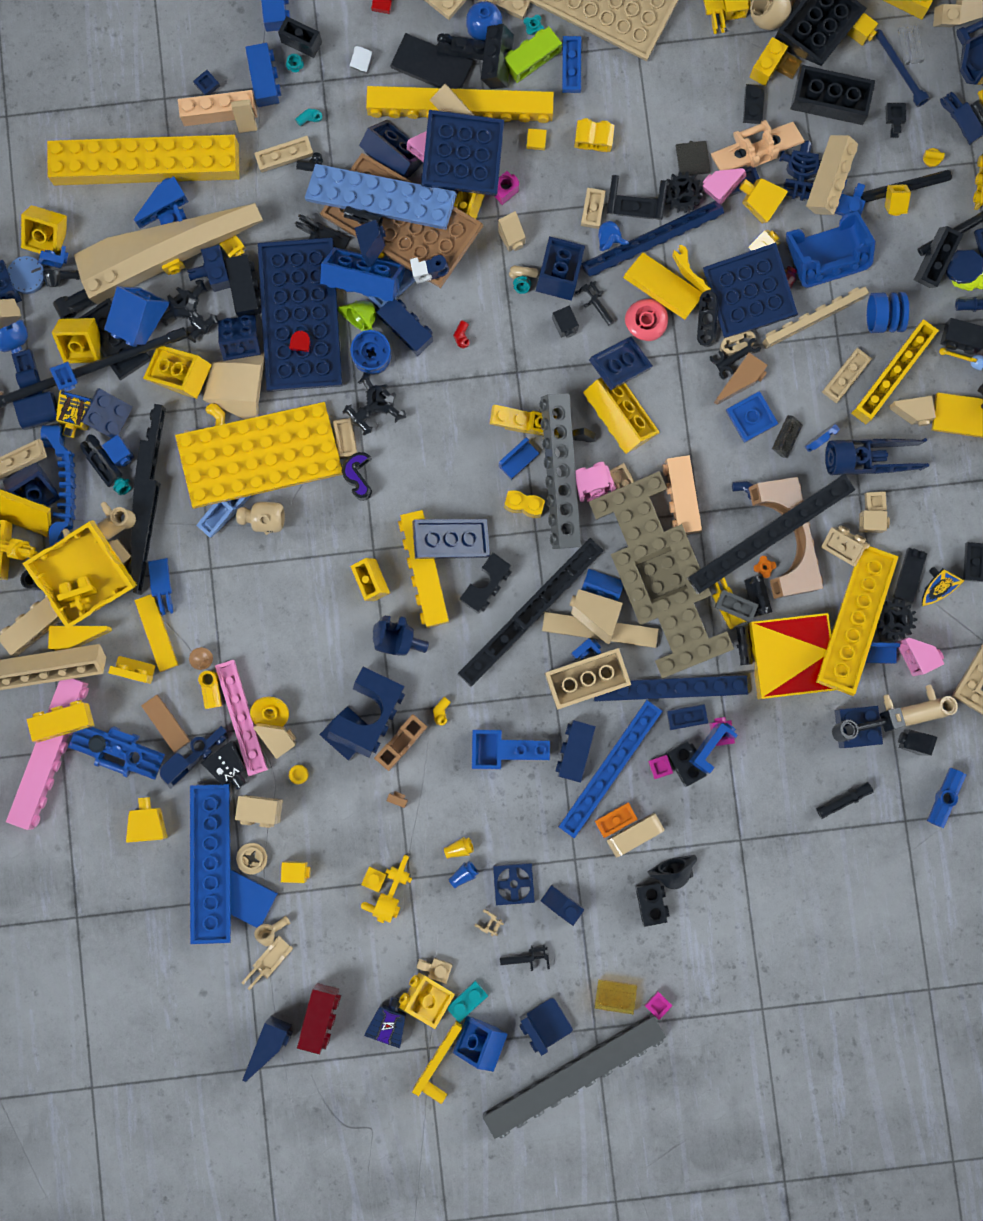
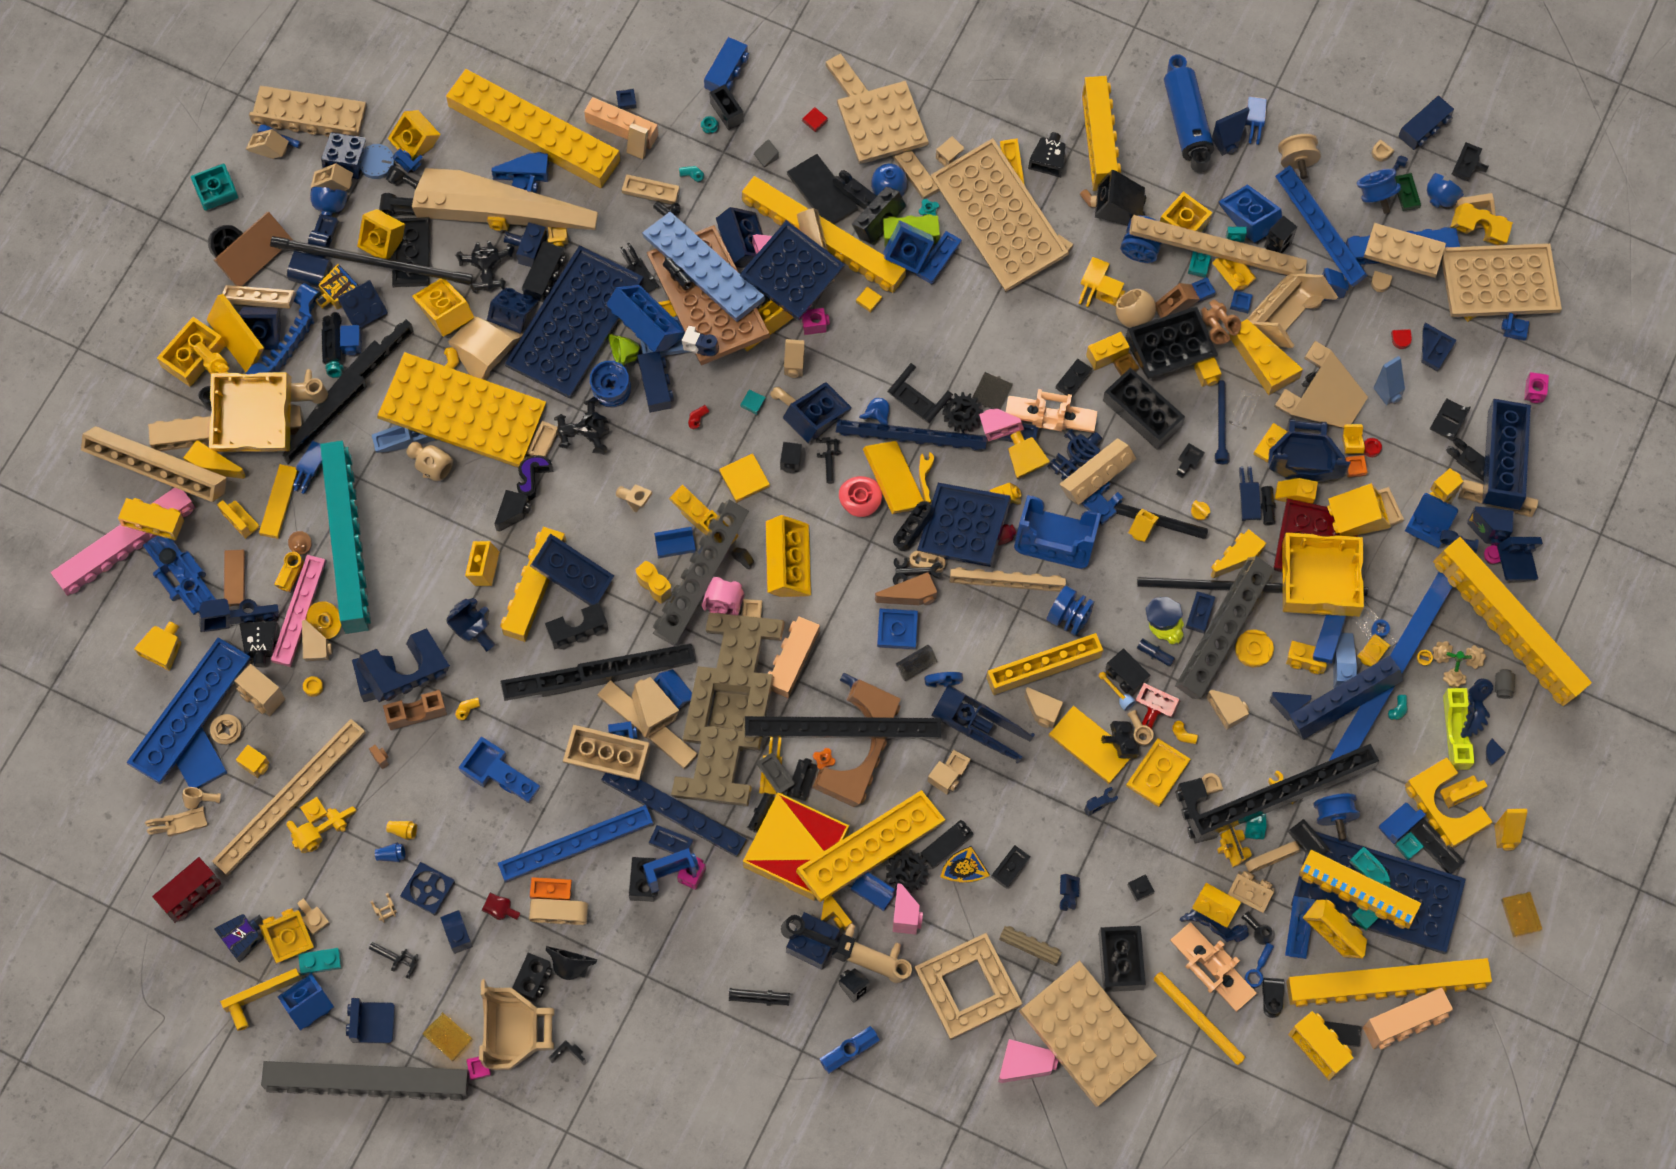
camera: 30 degrees right, 15 degrees down
(64, 376) = (348, 254): blue bracket -> none
(68, 595) = (237, 428): yellow hips -> none
(134, 314) = (439, 240): blue slope -> none
(236, 630) = (345, 537): none -> teal brick
(263, 74) = (676, 119): blue brick -> none
(272, 1038) = (128, 886): dark blue slope -> none
(300, 341) = (558, 341): red tile -> none
(345, 882) = (288, 797): none -> tan plate
(362, 515) = (512, 510): none -> black slope
(370, 241) = (668, 295): dark blue slope -> none
(458, 441) = (634, 497): none -> tan bracket
(499, 292) = (753, 402): none -> teal tile
(522, 288) = (772, 409): teal plate -> none
(537, 364) = (744, 477): none -> yellow tile
(544, 70) = (908, 247): none -> blue brick
(575, 751) = (556, 810): dark blue brick -> none
(584, 862) = (499, 907): none -> dark red piece
(593, 208) = (878, 381): tan plate -> none
(594, 135) = (918, 324): yellow brick -> none
(620, 363) = (813, 516): dark blue plate -> none
(660, 767) = (619, 868): dark pink plate -> none
(667, 959) = (511, 1028): none -> tan piece
(727, 941) = (574, 1050): none -> black bracket
(845, 545) = (904, 780): tan bracket -> none
(846, 375) = (1004, 645): tan tile -> none
(867, 694) = (831, 909): none -> yellow slope
(938, 257) = (1145, 591): black brick -> none
(951, 60) = (1272, 436): none -> yellow plate

